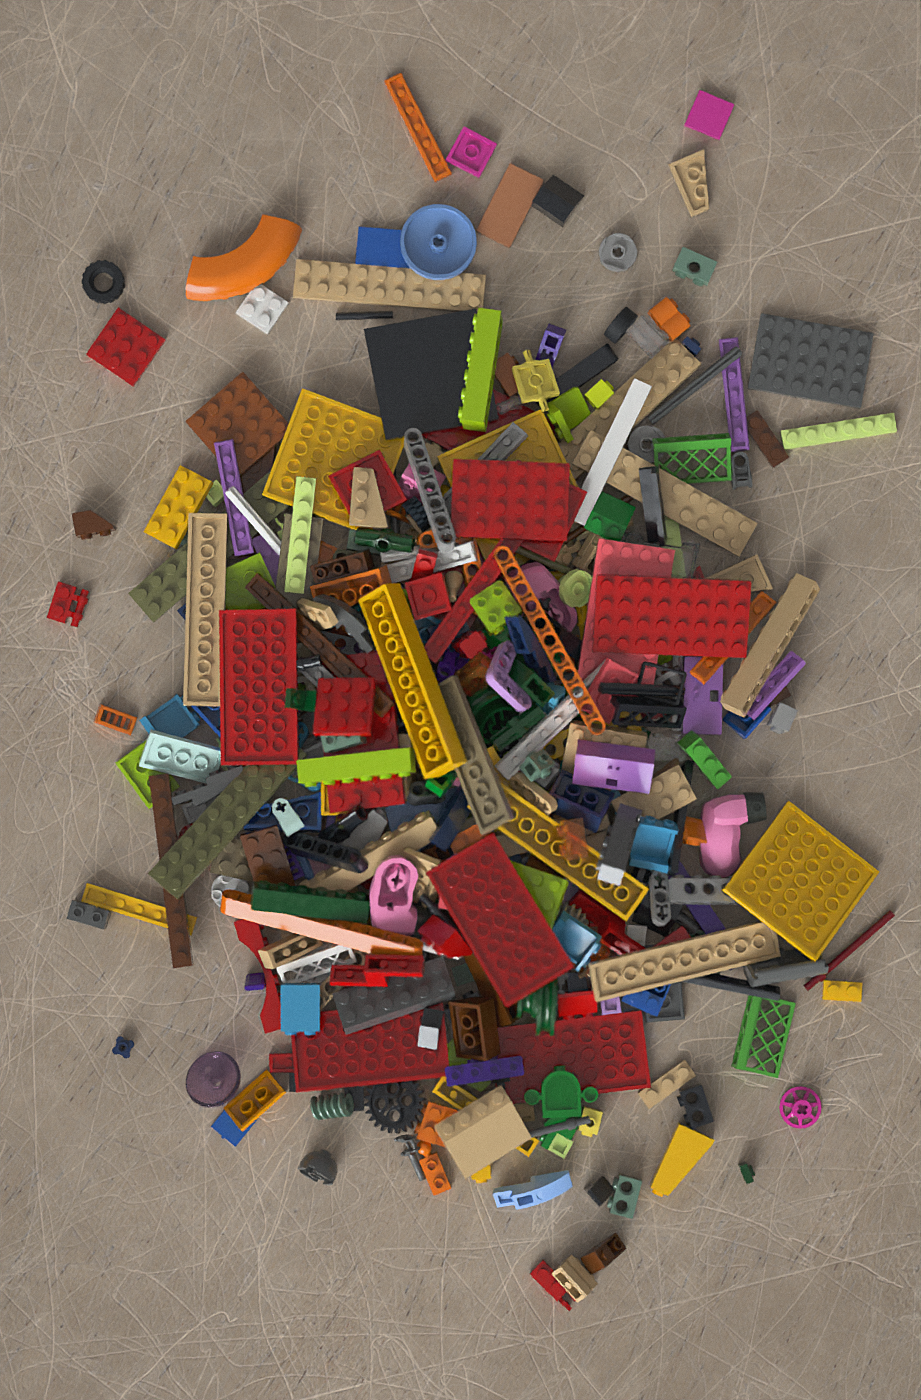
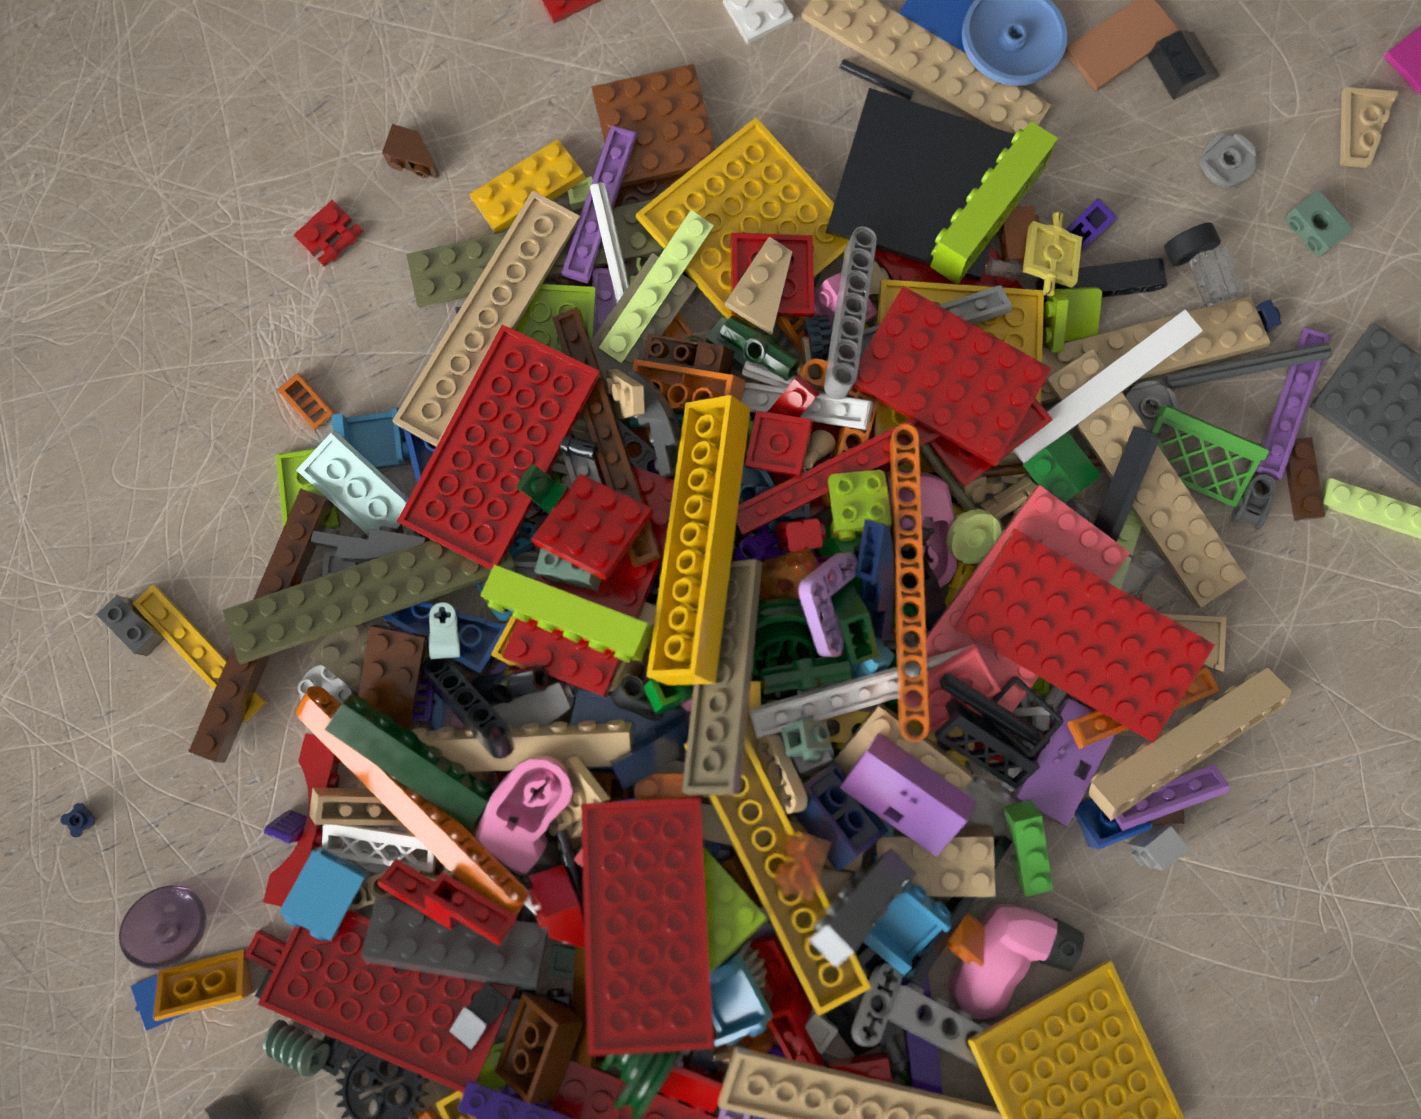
camera: 25 degrees right, 5 degrees down
(599, 394) = (1121, 315): neon yellow brick -> none
(669, 318) = (1257, 269): orange brick -> none

